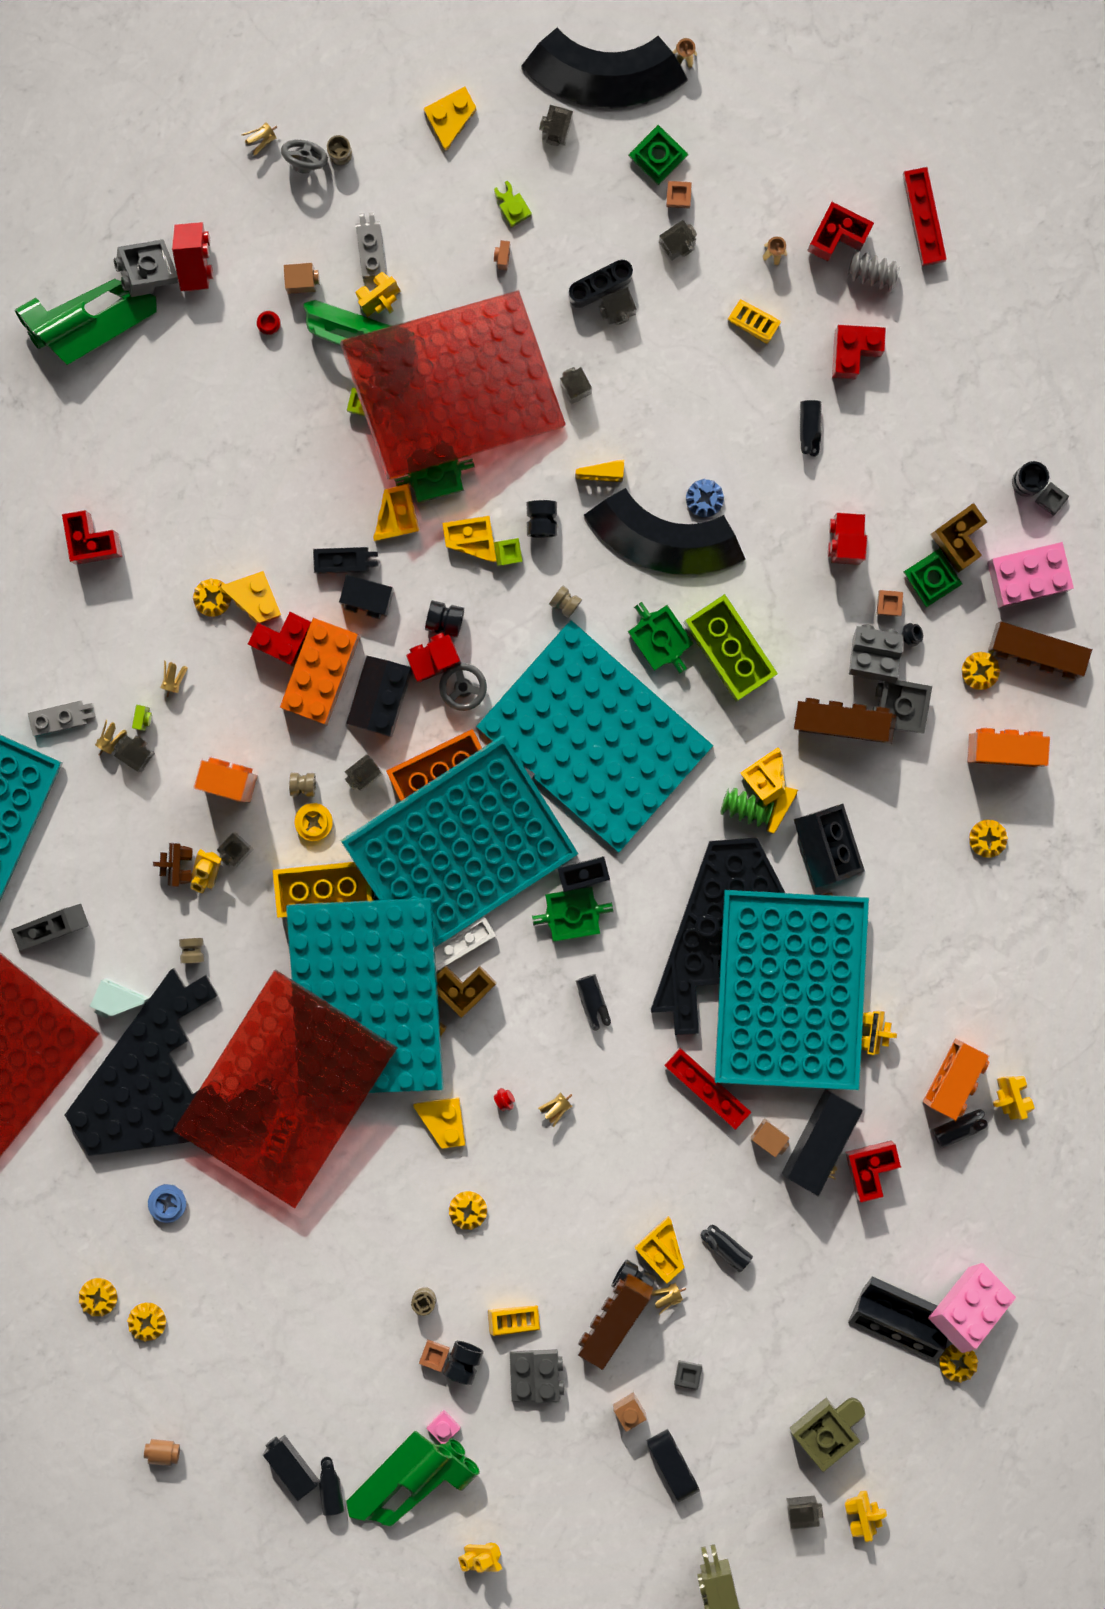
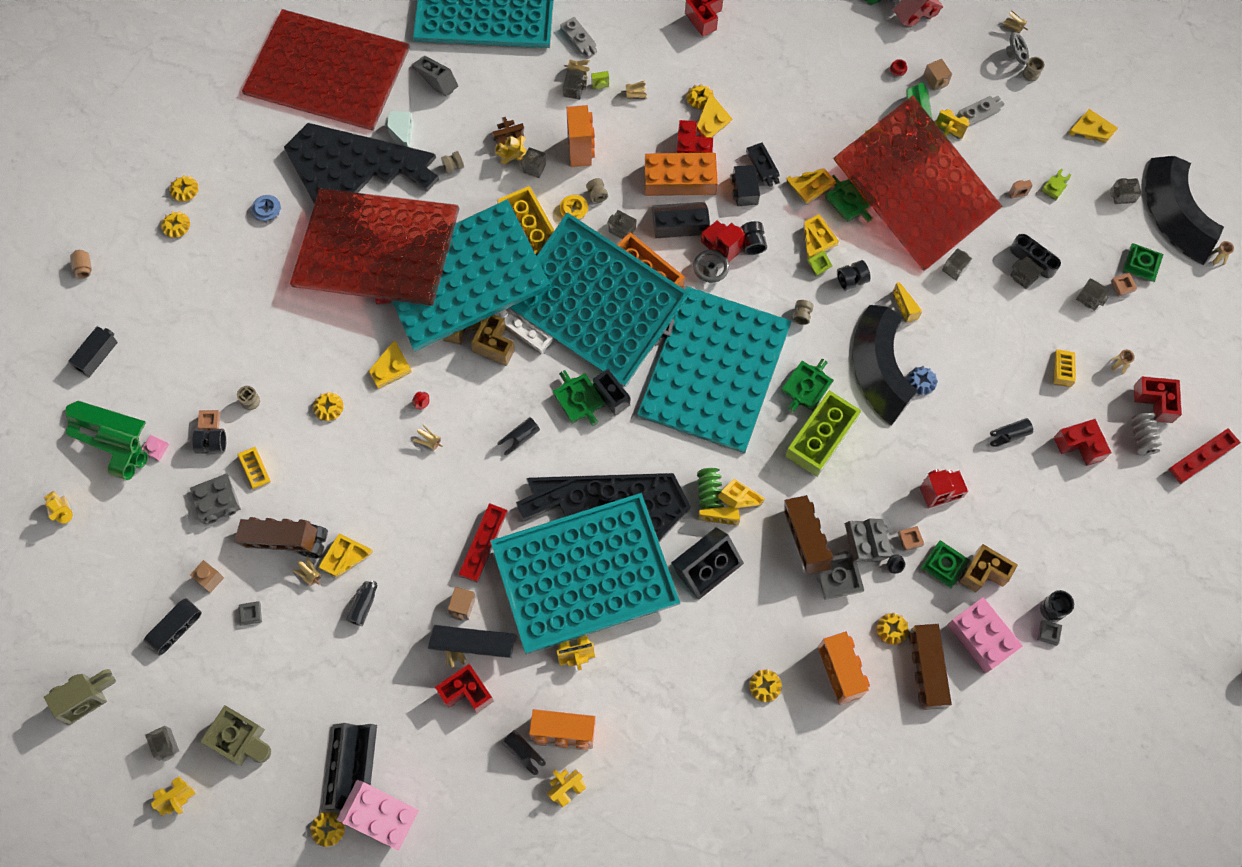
camera: 65 degrees right, 20 degrees down
(330, 1489) = (85, 383): black piece -> none

